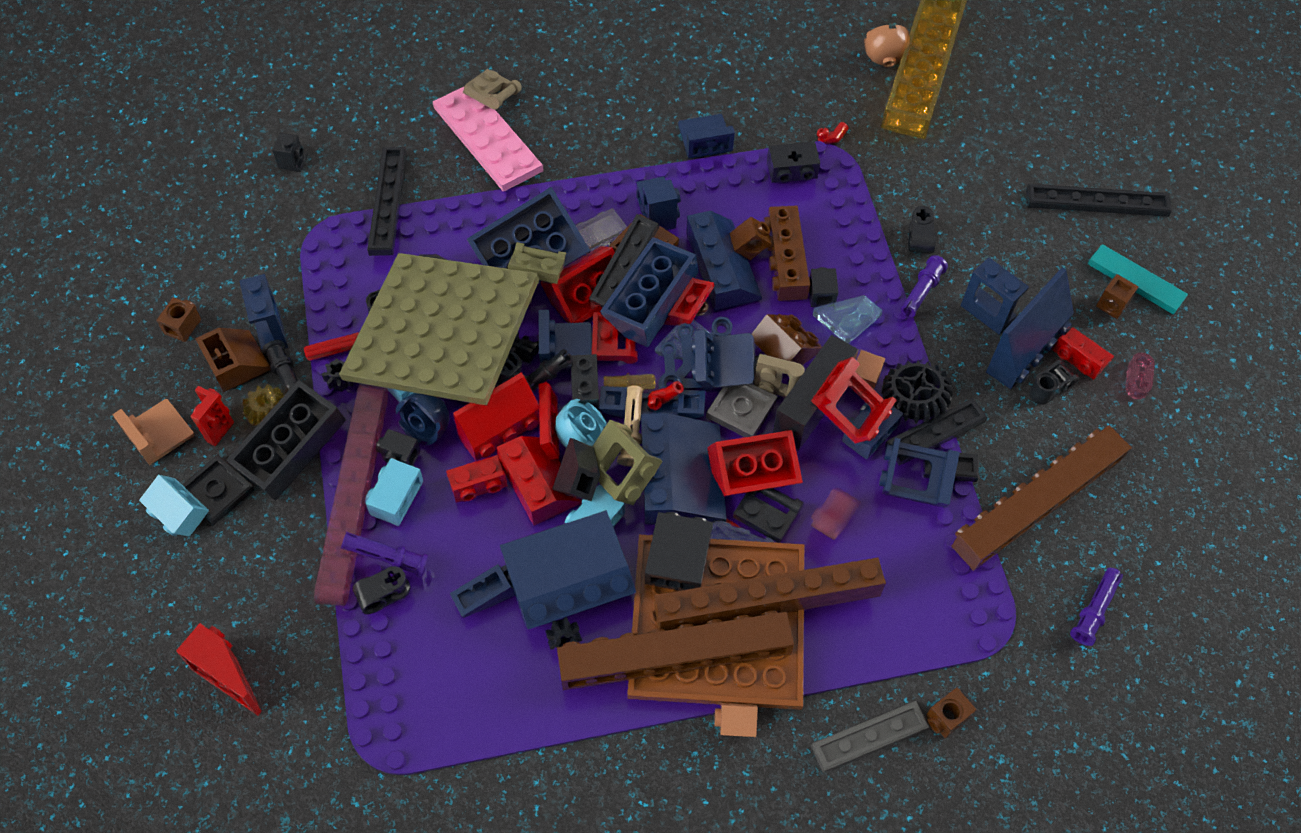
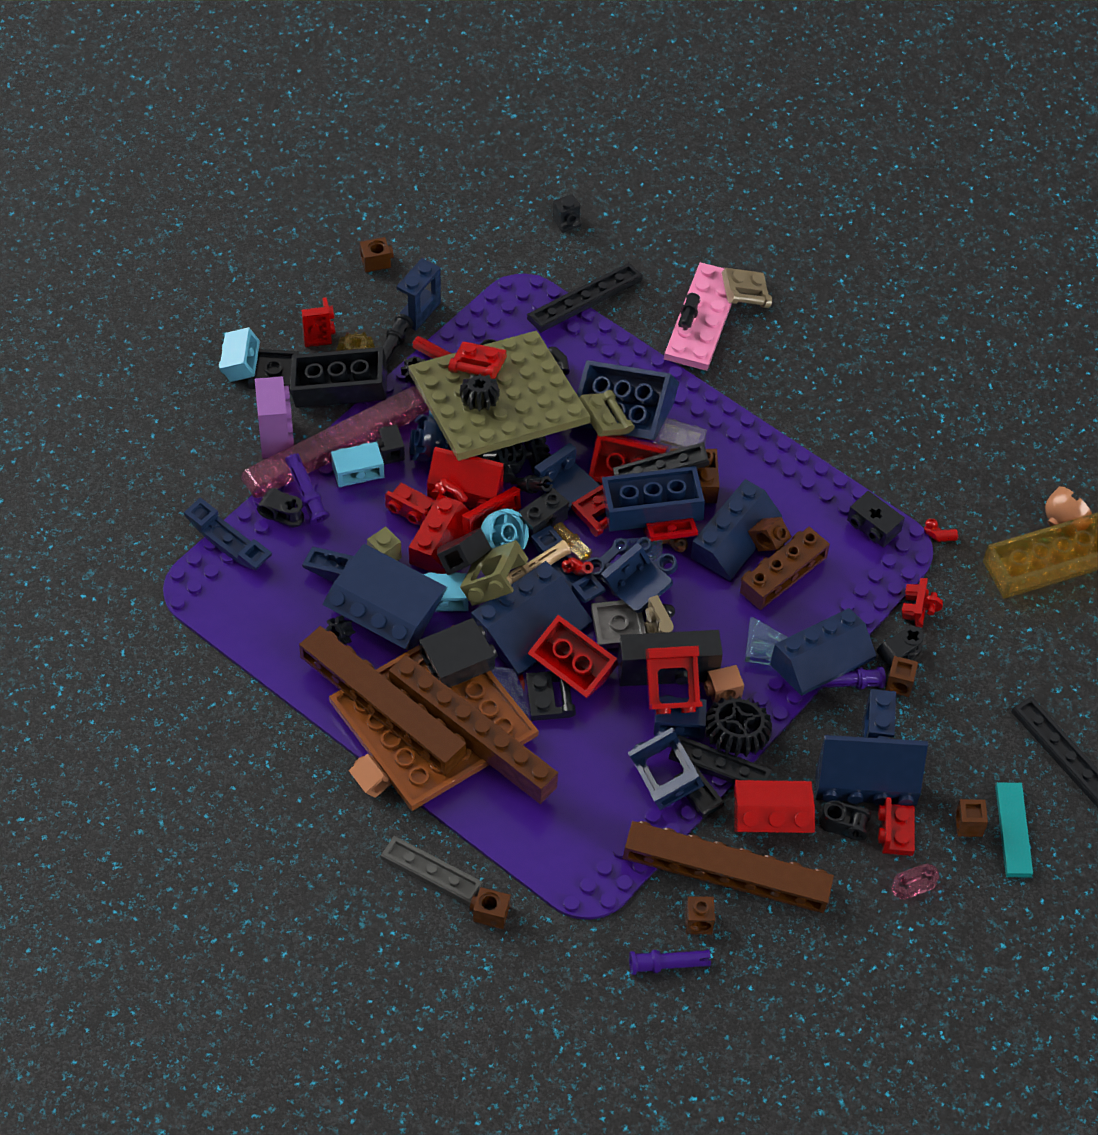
camera: 50 degrees right, 5 degrees down
(155, 430) = (281, 305): nougat bracket -> none
(212, 659) = (154, 459): red slope -> none
(232, 356) = (374, 302): reddish brown slope -> none
(281, 524) = (274, 415): none -> medium lavender brick
(369, 663) = (225, 537): none -> dark blue slope
(394, 314) = (478, 359): none -> red plate
(437, 335) = (479, 392): none -> black gear
(482, 138) = (689, 311): none -> black axle
(502, 432) = (452, 487): none -> red arm
(505, 529) = (386, 543): none -> olive brick
(659, 201) = (742, 455): dark blue brick -> none
(706, 136) = (847, 449): dark blue bracket -> none
(786, 339) = (701, 610): reddish brown slope -> none
(823, 286) = (775, 609): black brick -> none
(835, 513) = (582, 736): clear pink brick -> none
(892, 187) = (920, 594): none -> red hips
(896, 283) = (823, 652): none -> dark blue slope
(953, 248) = (901, 676): none -> reddish brown brick
(1012, 422) = (774, 806): none -> red slope
(1073, 550) = (699, 915): none -> reddish brown brick

